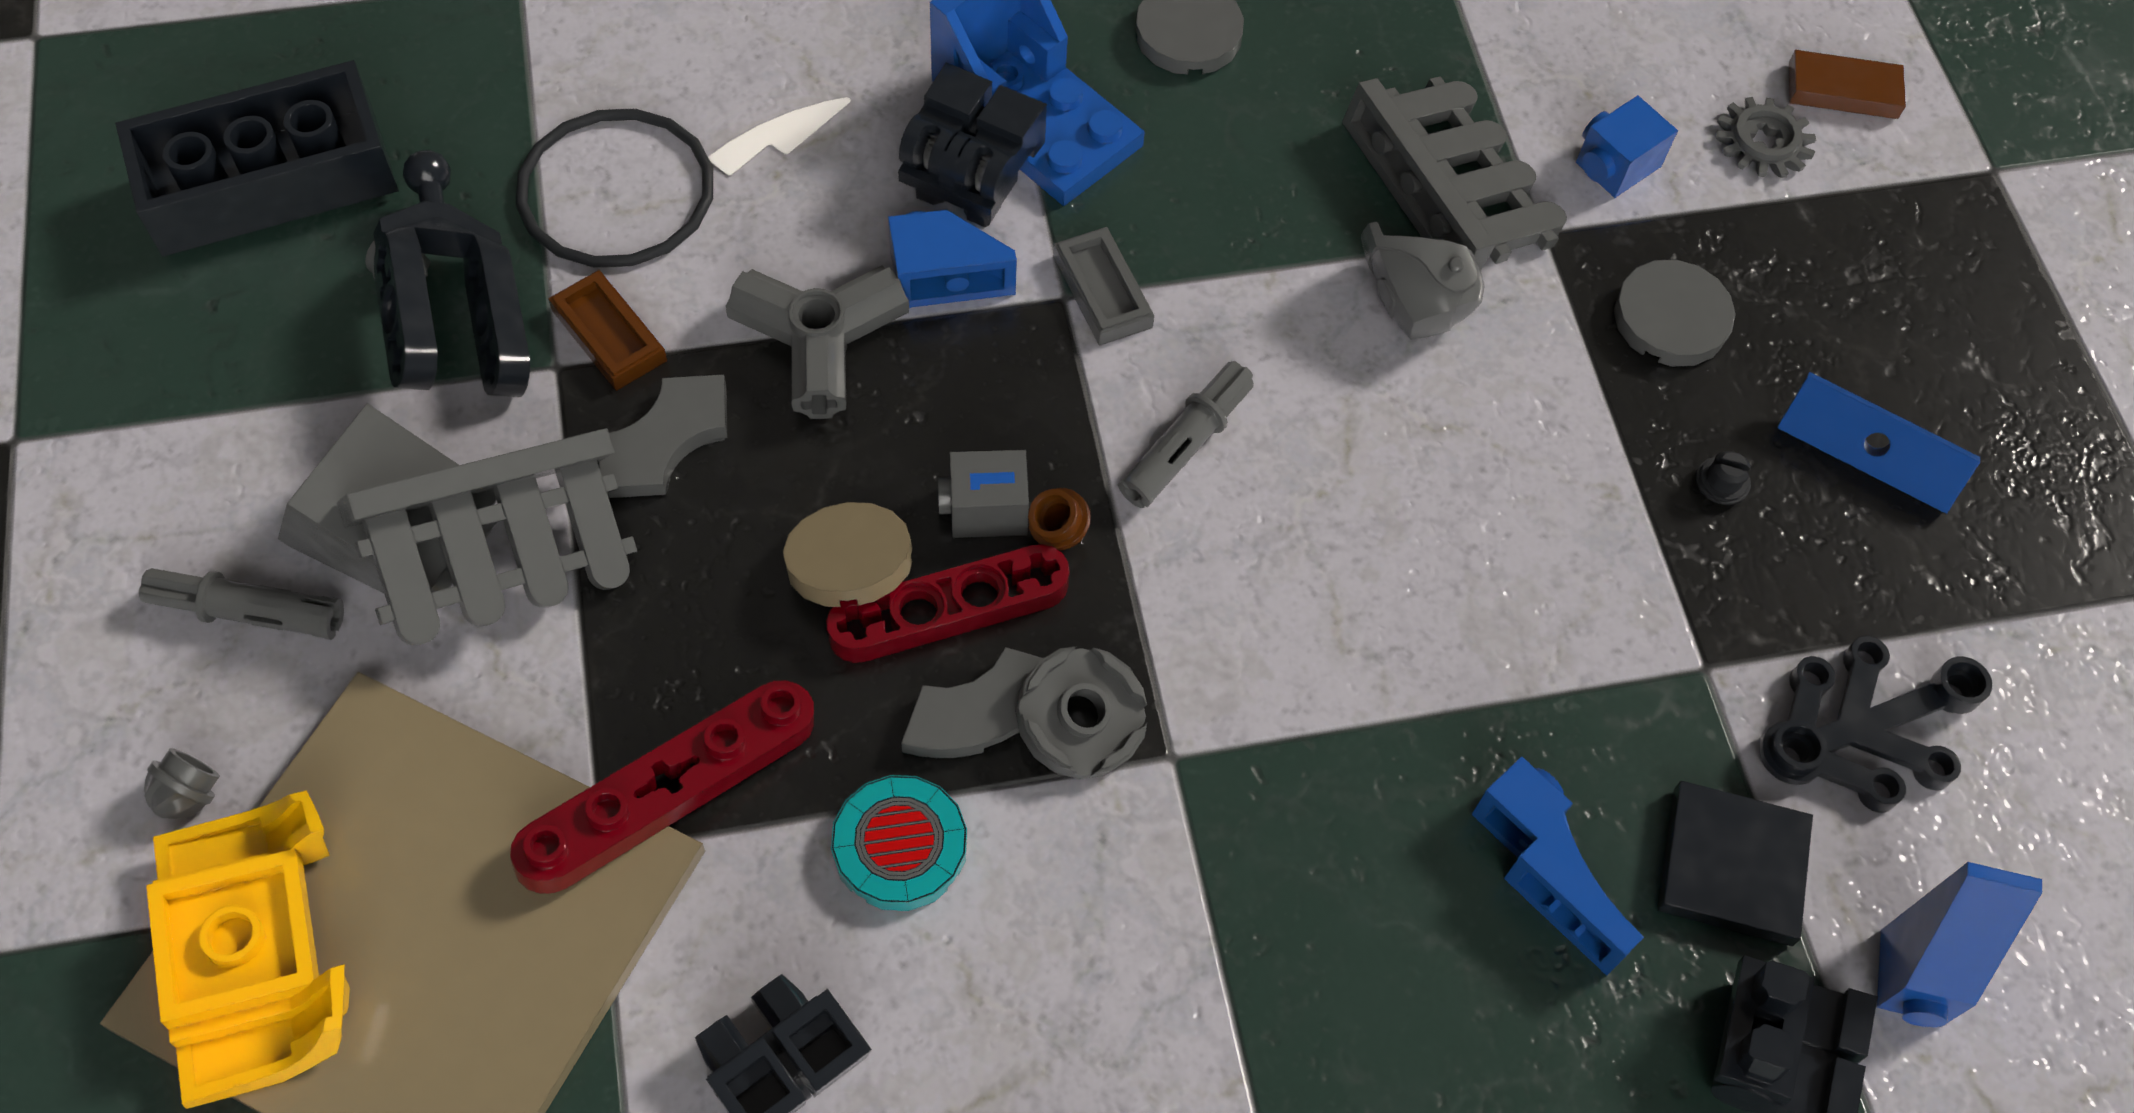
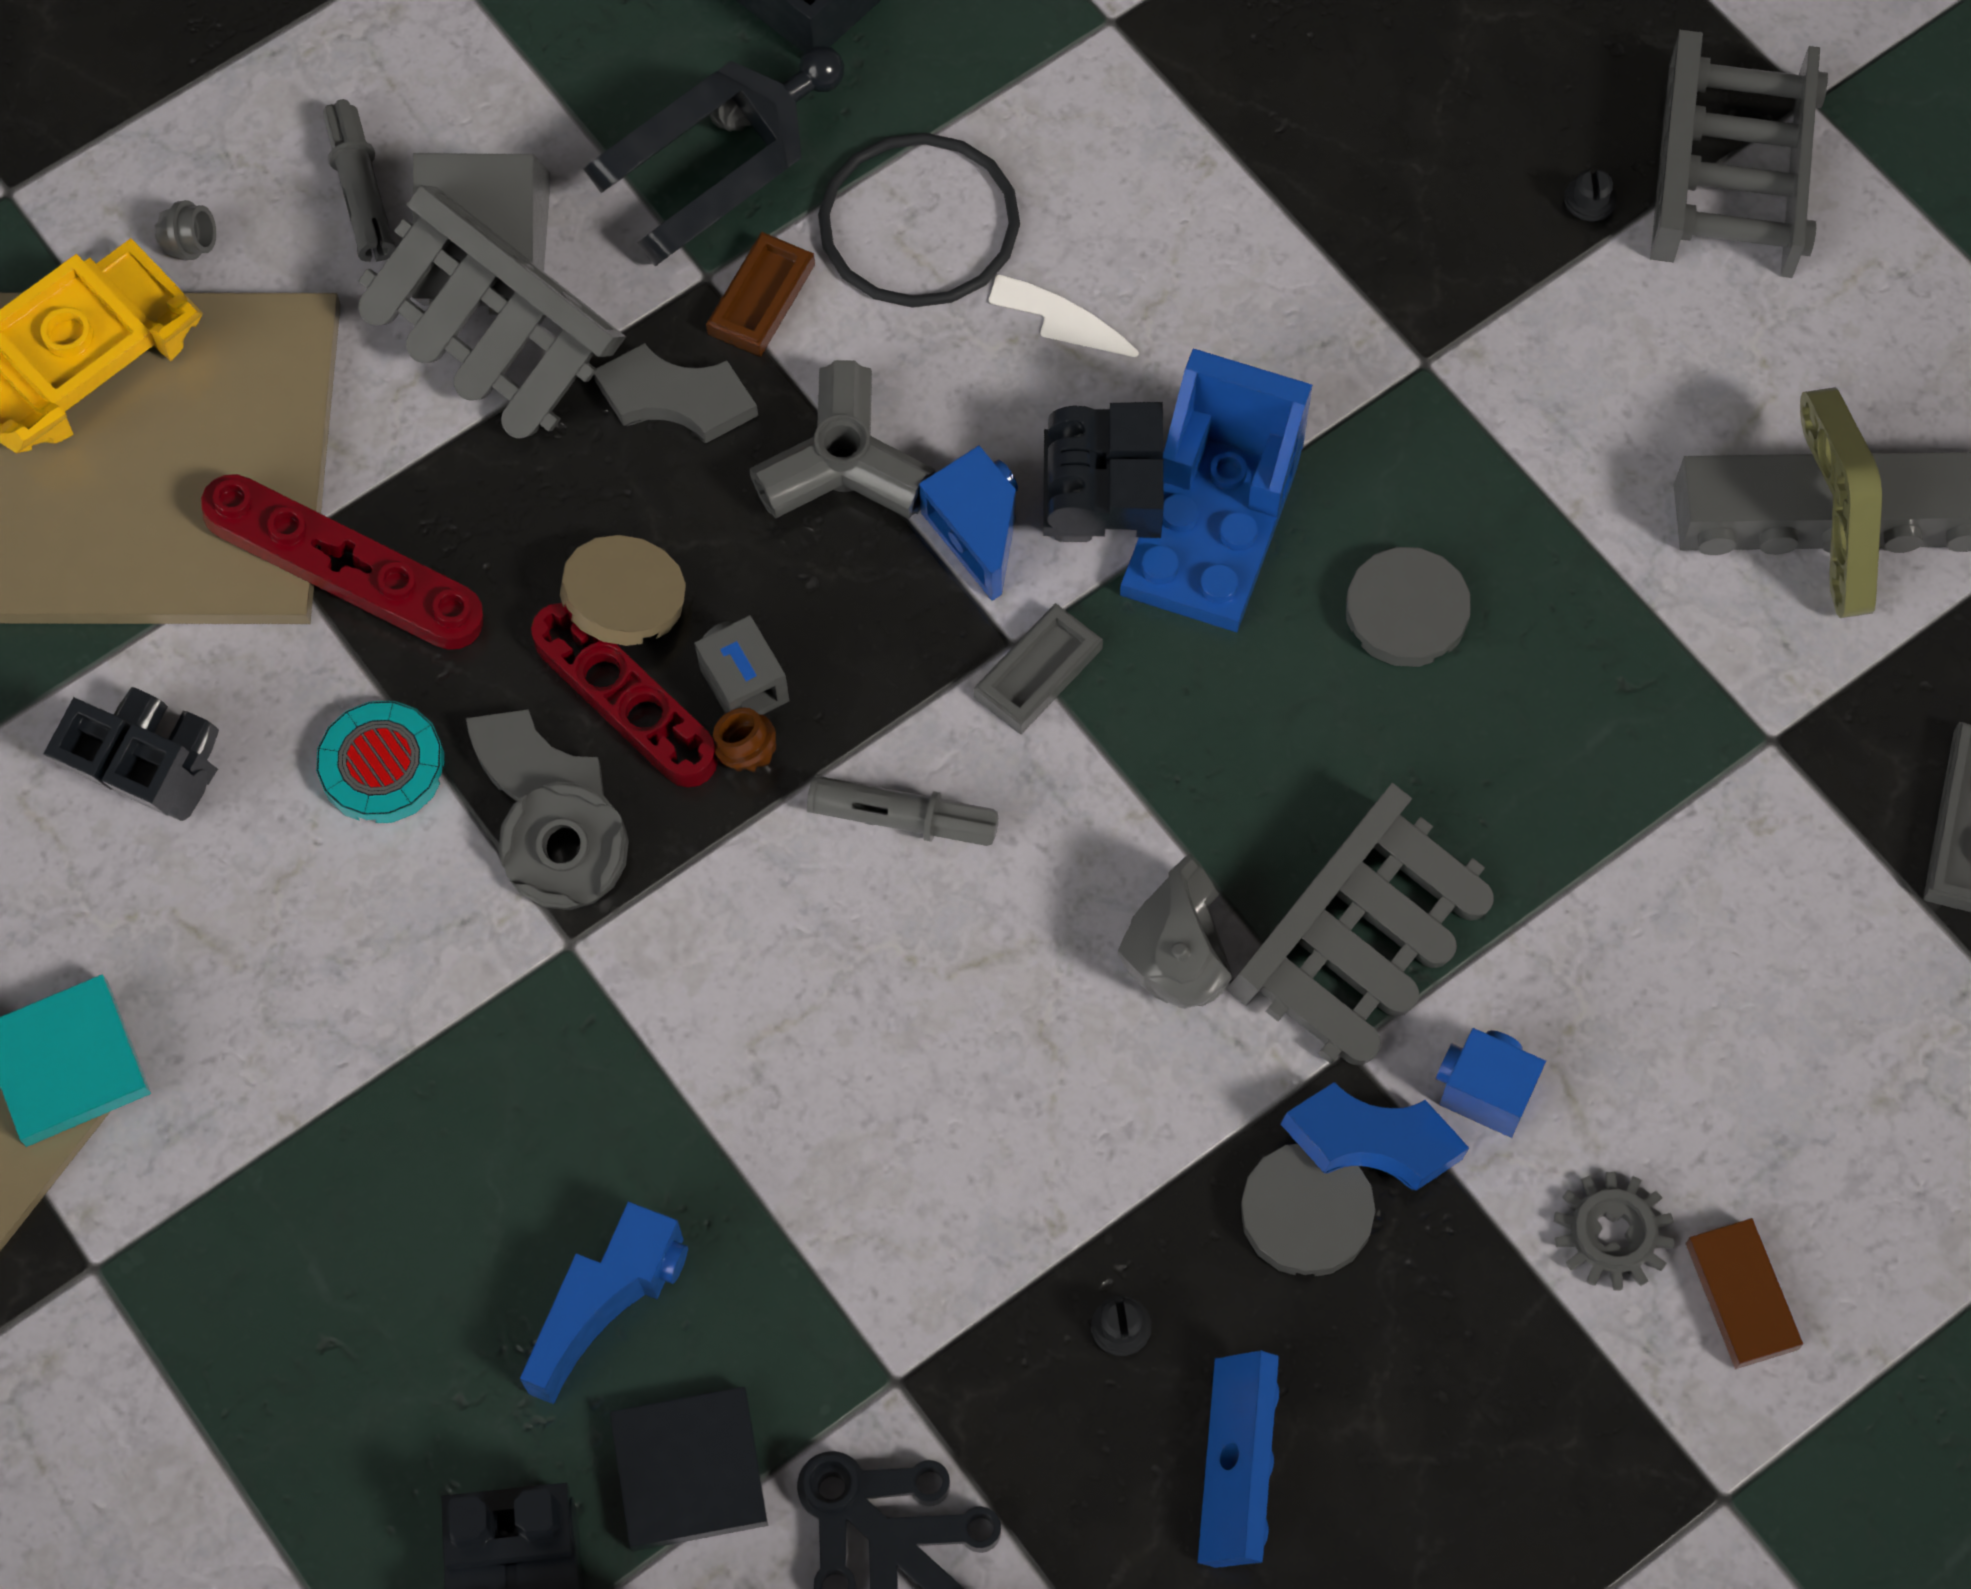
camera: 70 degrees right, 5 degrees up
(1644, 228) = (1346, 1132): none -> blue tile

